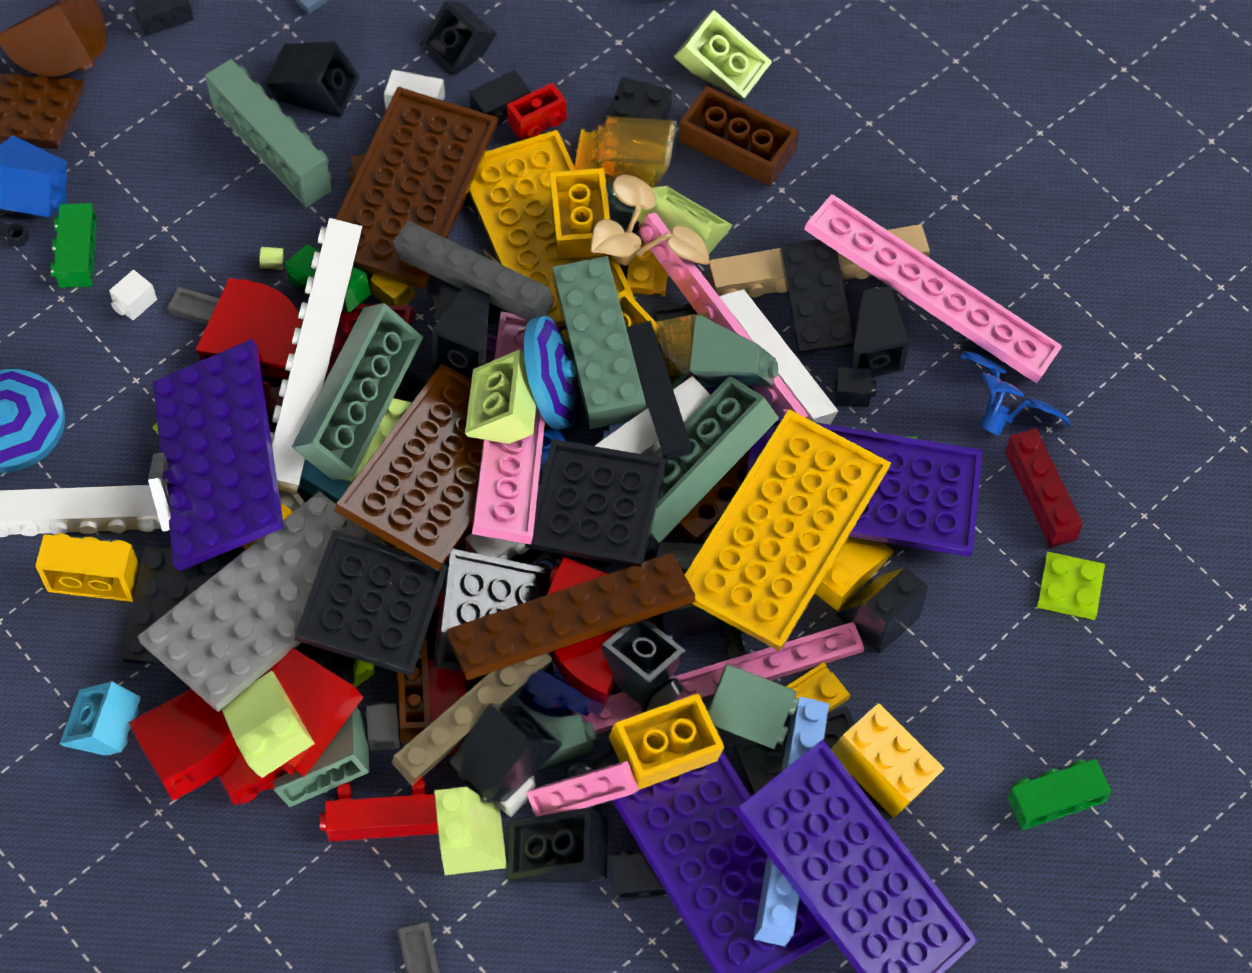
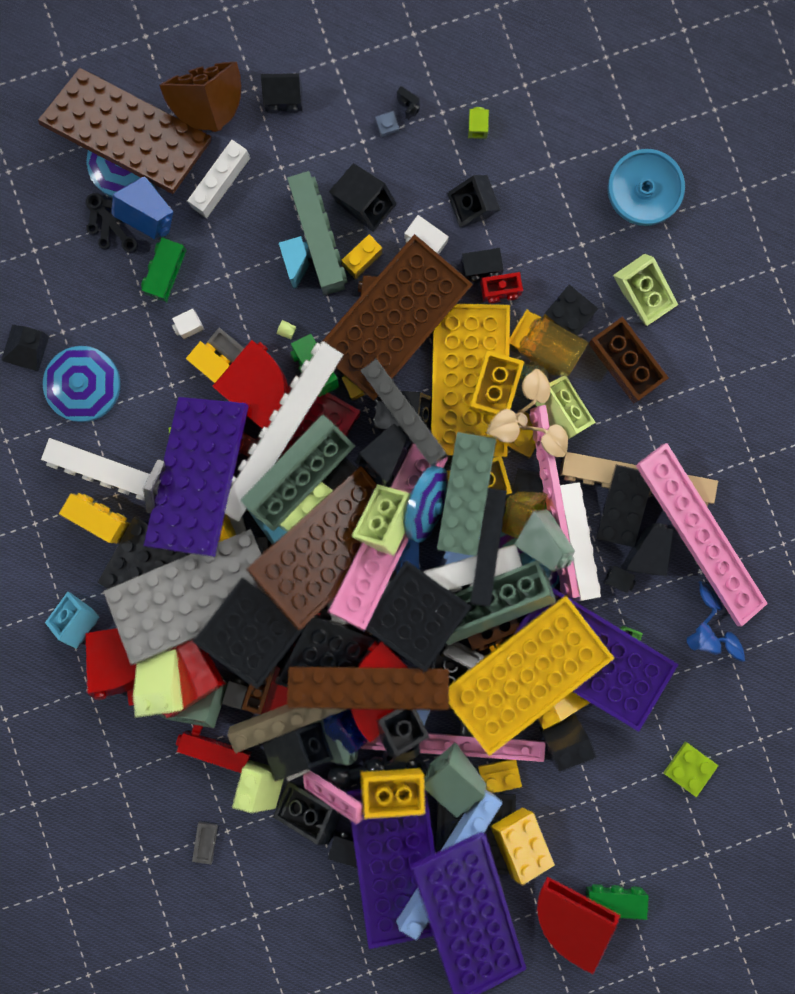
camera: 25 degrees right, 25 degrees up
(112, 120) = (219, 178): none -> white brick
(176, 329) = (207, 361): none -> yellow brick
(250, 168) = (295, 256): none -> medium azure slope
(341, 139) = (362, 256): none -> yellow brick
(1014, 837) = (575, 924): none -> red brick
(1043, 488) = (705, 700): dark red brick -> none

